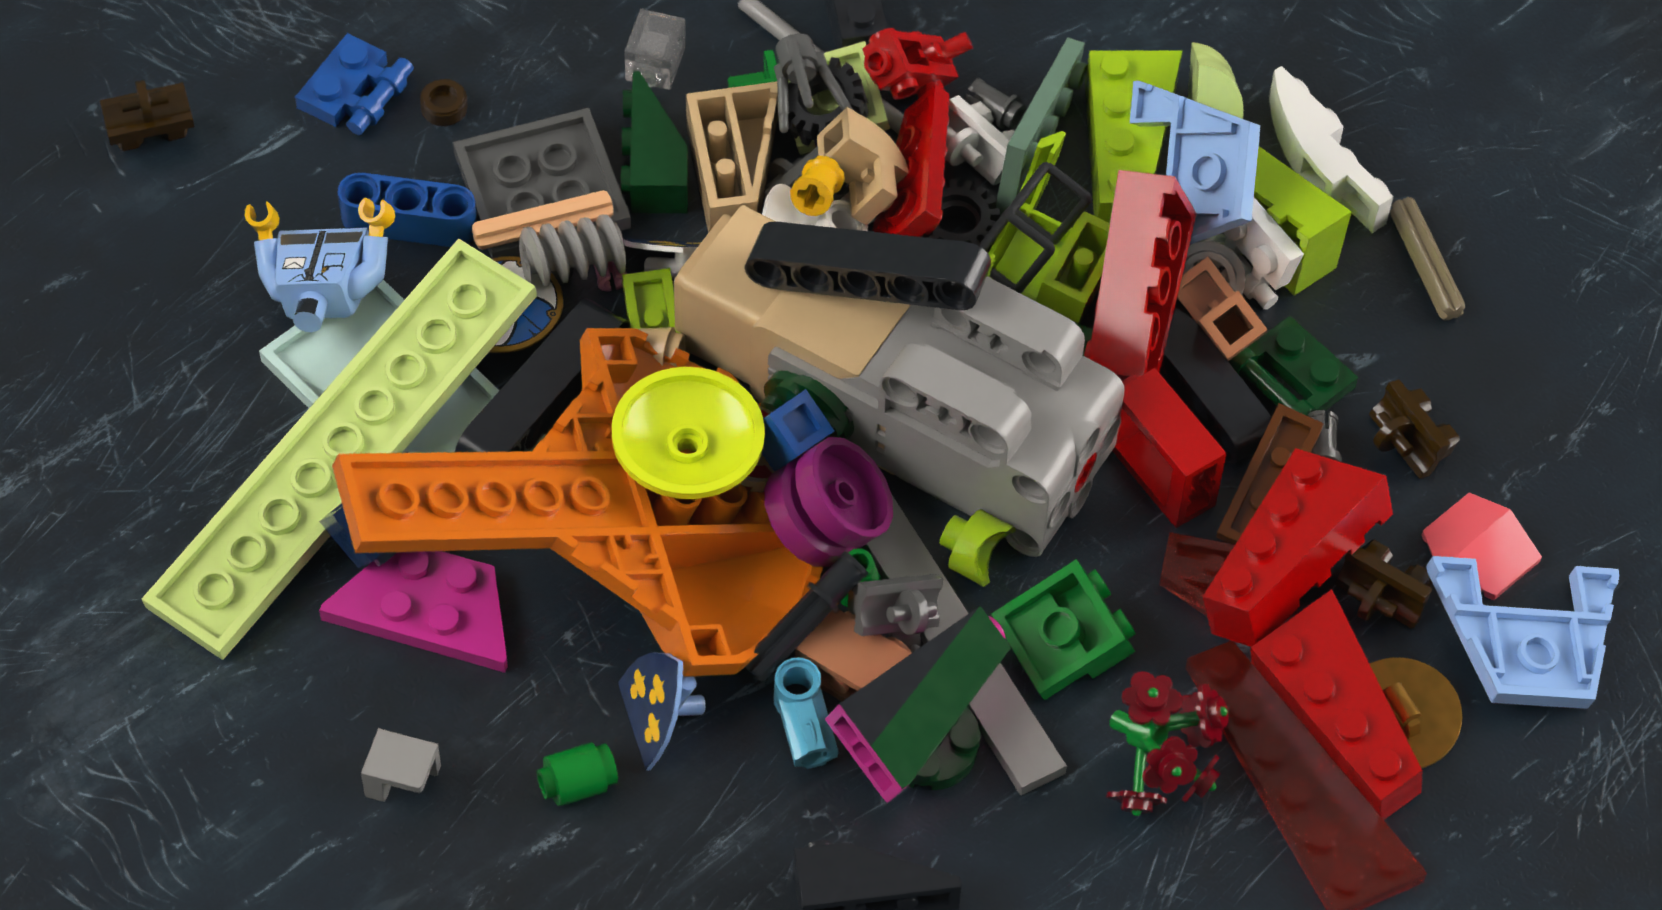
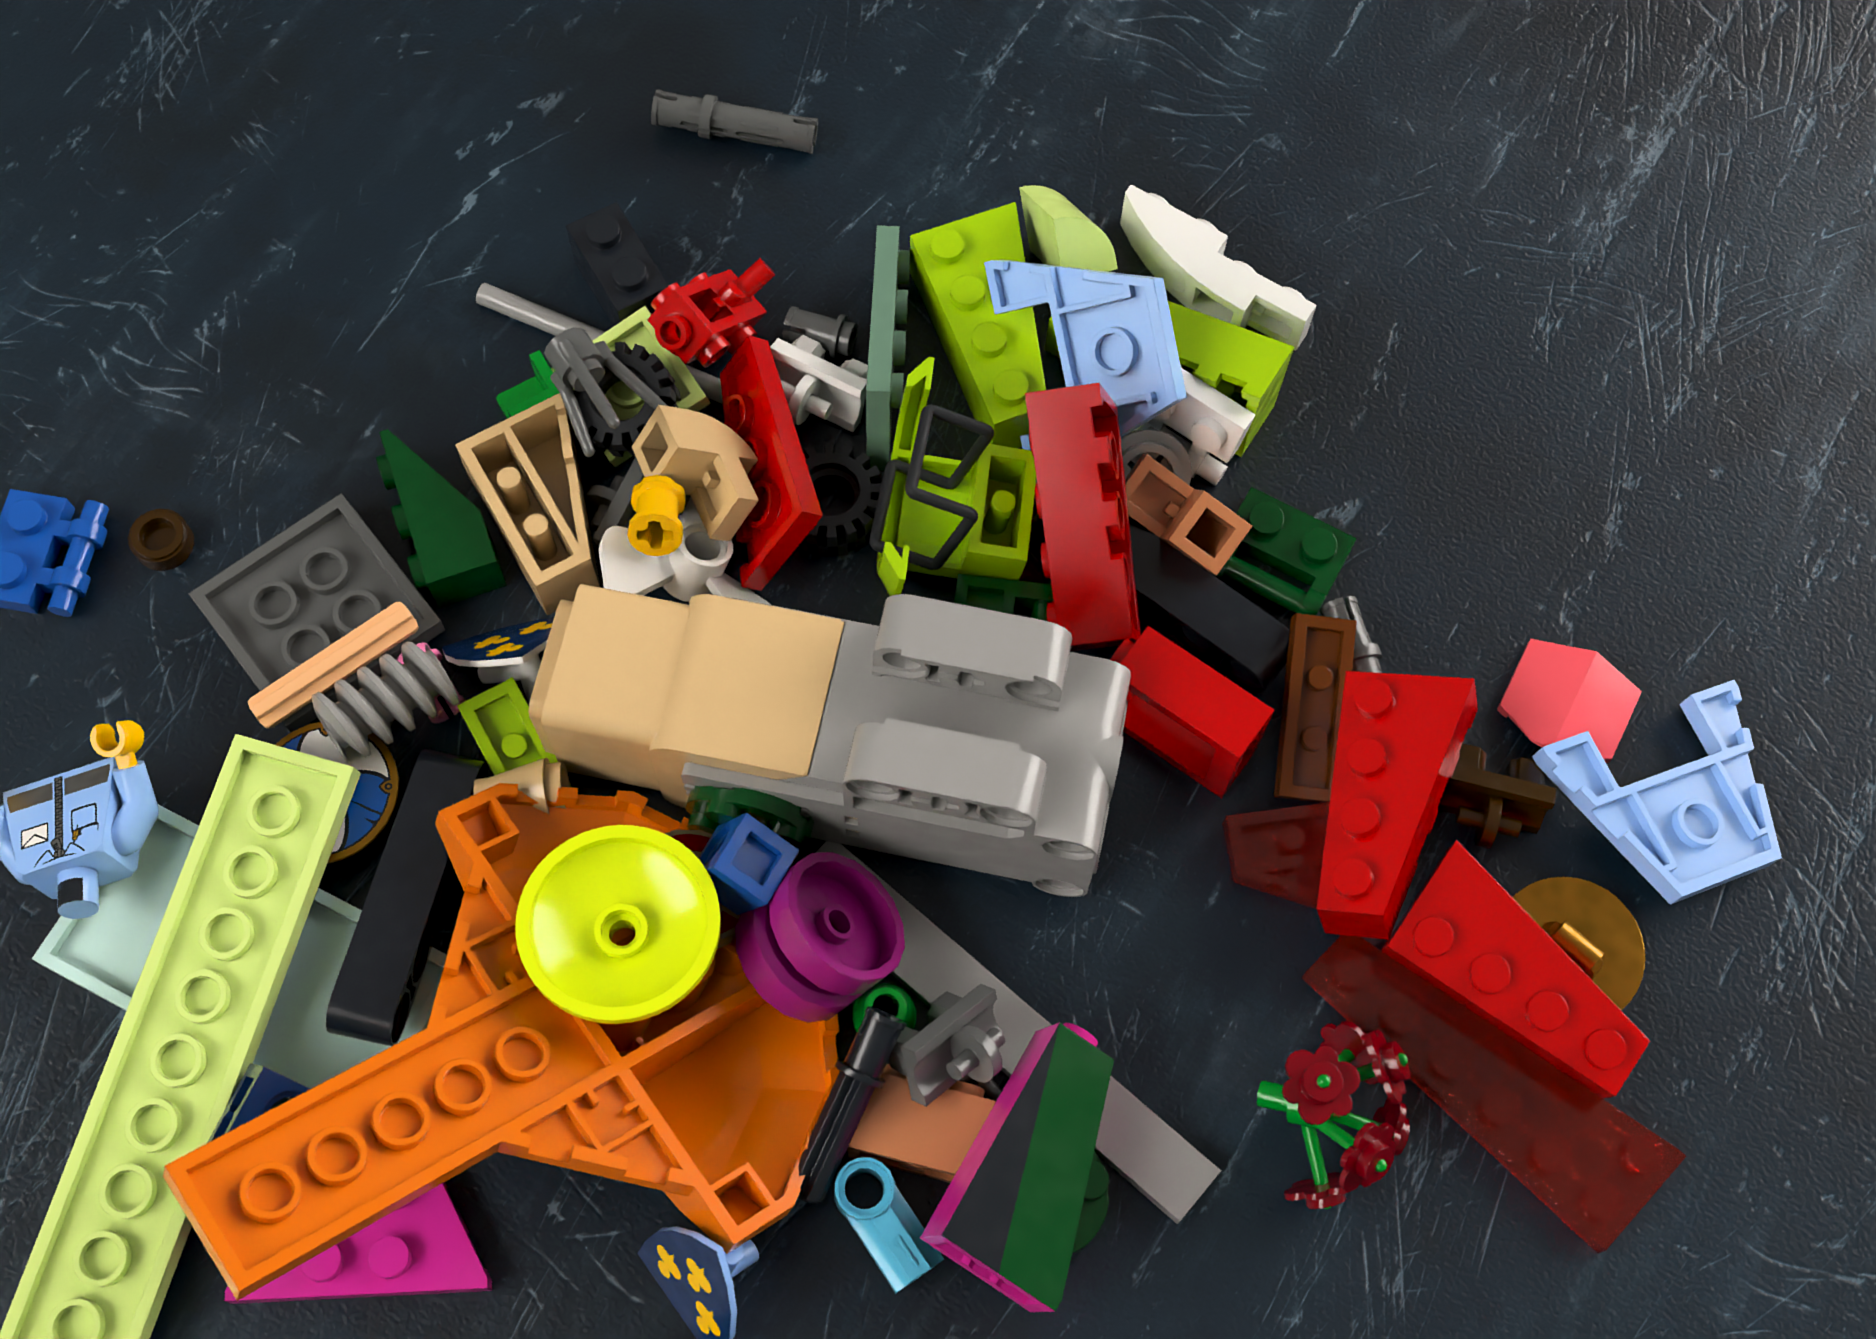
camera: 20 degrees left, 10 degrees up
(420, 208) = (135, 690): blue beam -> none
(655, 48) = (396, 391): clear brick -> none
(868, 265) = (774, 632): black beam -> none
(973, 543) = (1004, 914): lime piece -> none
(1065, 629) = (1153, 990): green plate -> none
(1409, 429) = (1441, 584): dark brown hips -> none
(1427, 259) = (1373, 365): dark tan axle -> none

